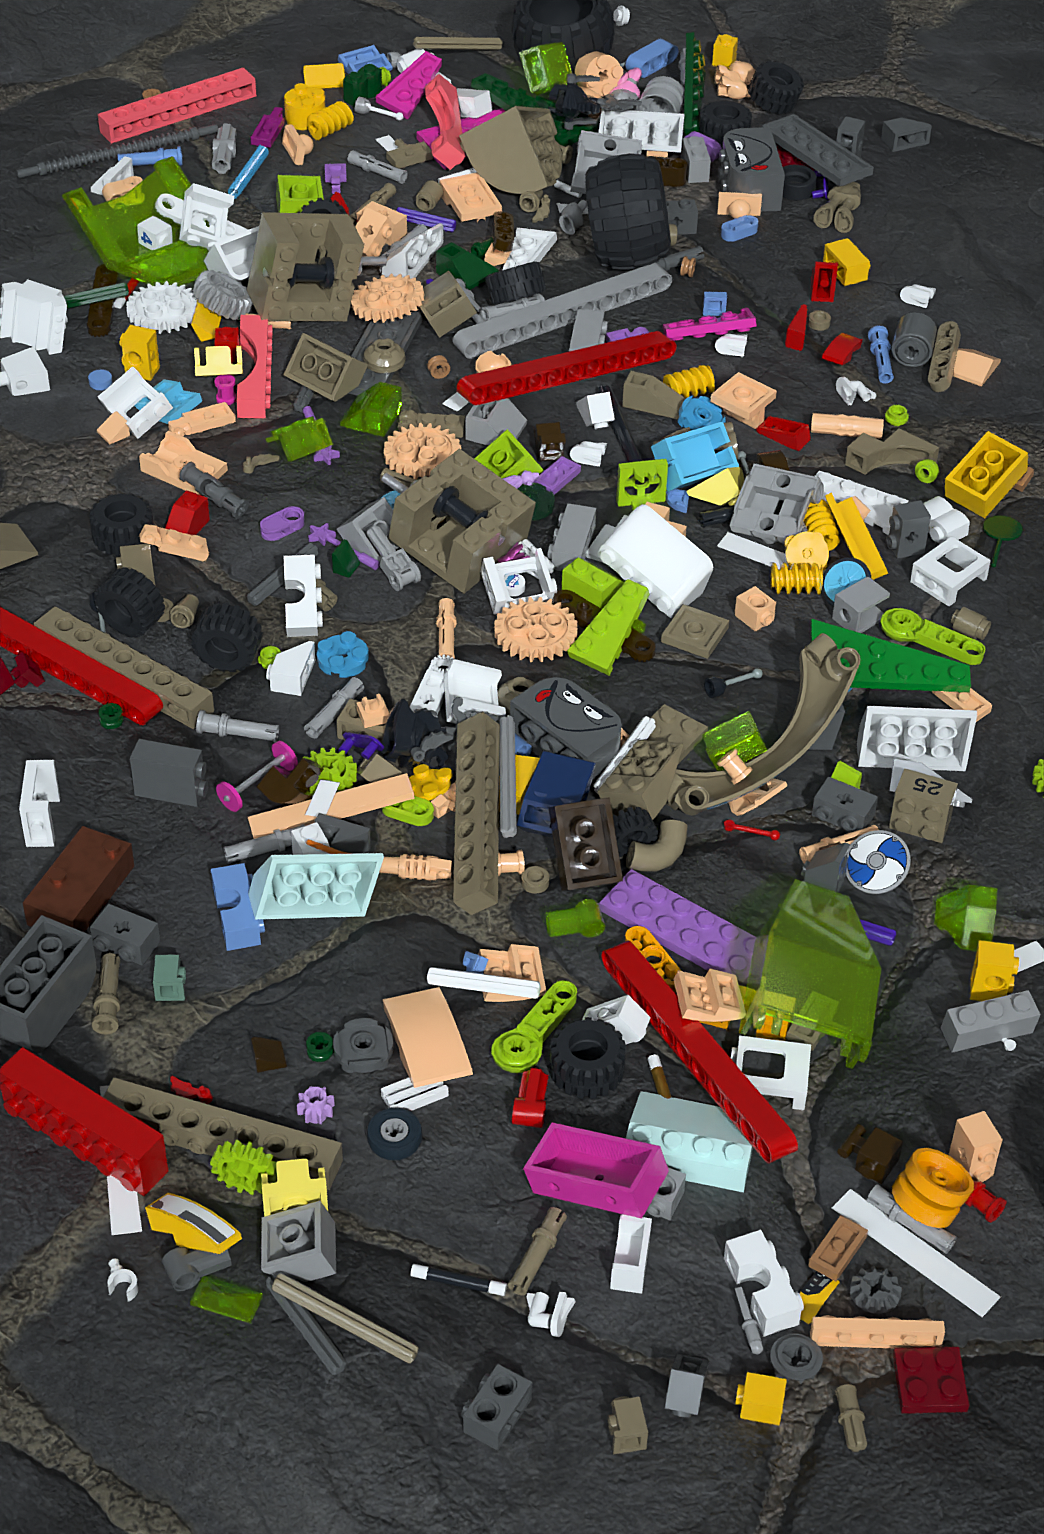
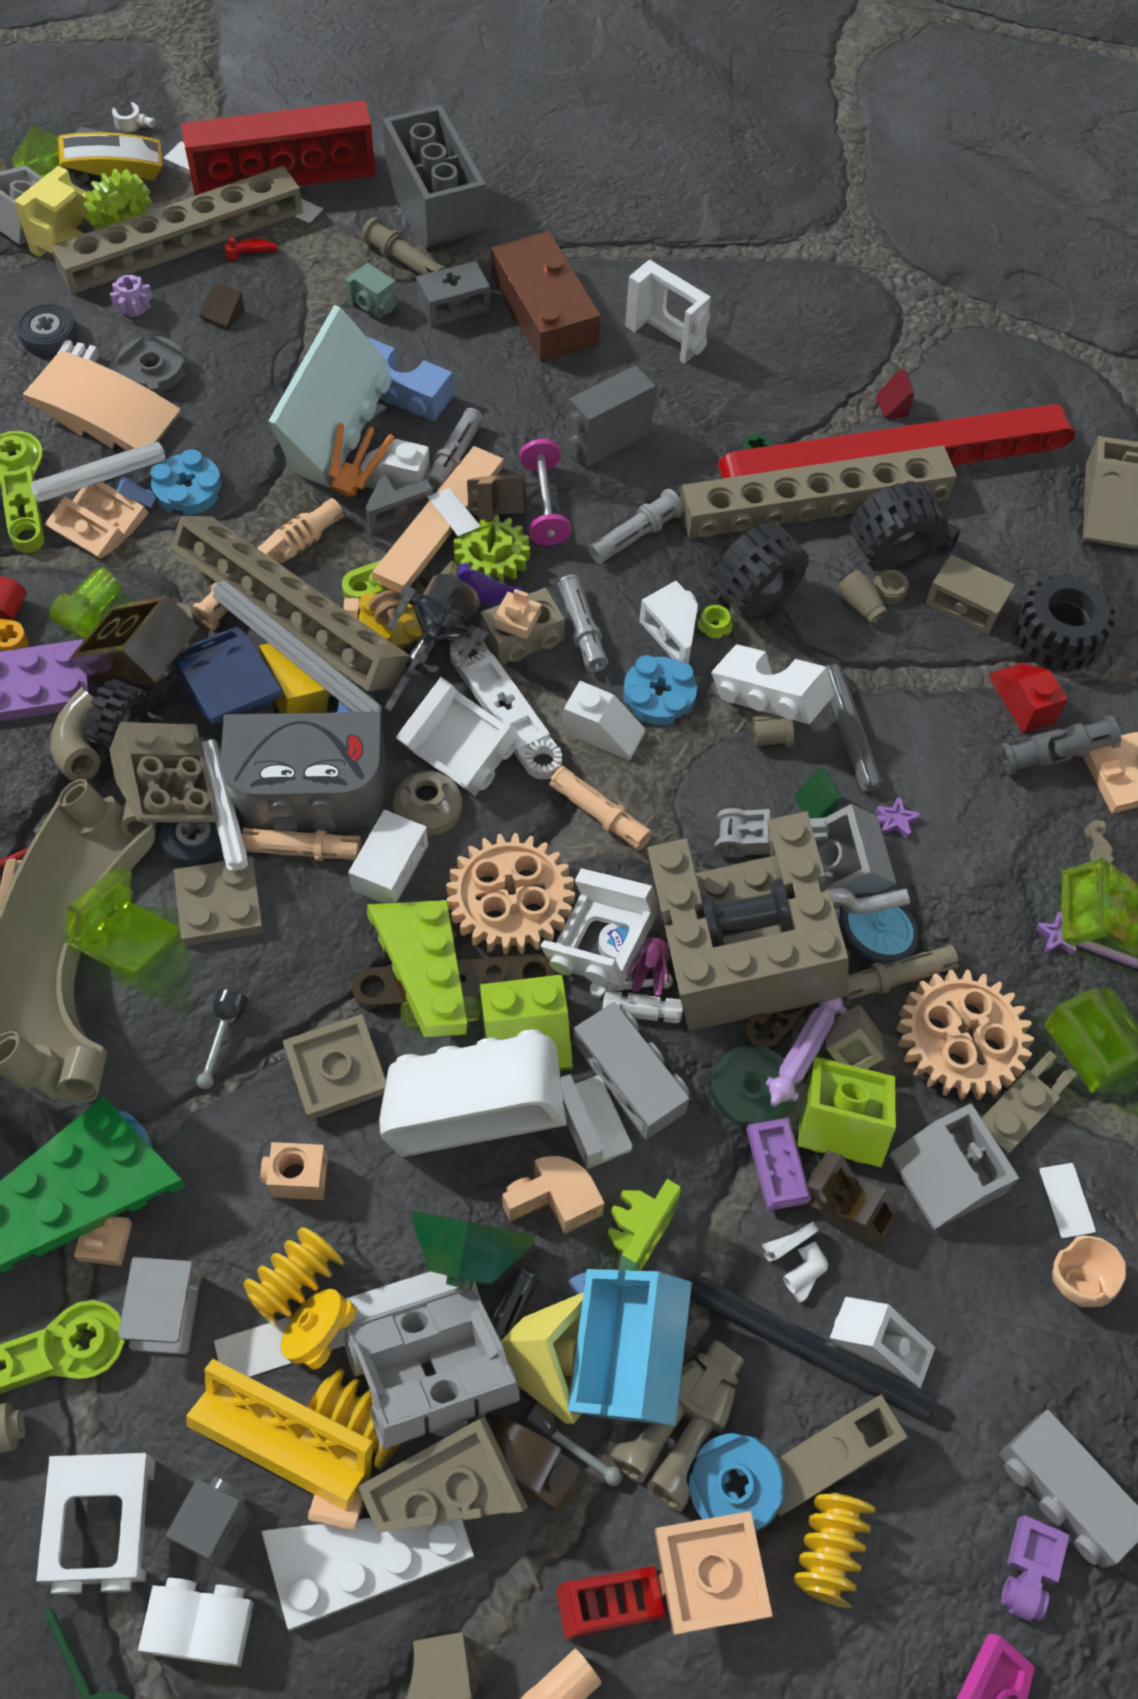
camera: 130 degrees right, 15 degrees up
(26, 671) = (882, 416): dark red tile -> none
(175, 542) = (984, 648): light nougat hinge -> none
(278, 526) = (948, 781): medium lavender piece -> none
(319, 1038) = (190, 342): dark green bush -> none
(395, 662) = (601, 721): none -> white slope
(431, 762) = (384, 606): none -> medium nougat bush
(431, 940) = (181, 468): none -> dark azure plate
(565, 368) = (990, 1371): red beam -> none
(581, 672) = (388, 858): none -> white panel
(715, 531) = (468, 1249): none -> dark green slope
(734, 766) = (76, 877): light nougat bush -> none
(796, 462) = (445, 1482): none -> dark tan wing
(842, 575) = (219, 1330): medium azure wheel -> none

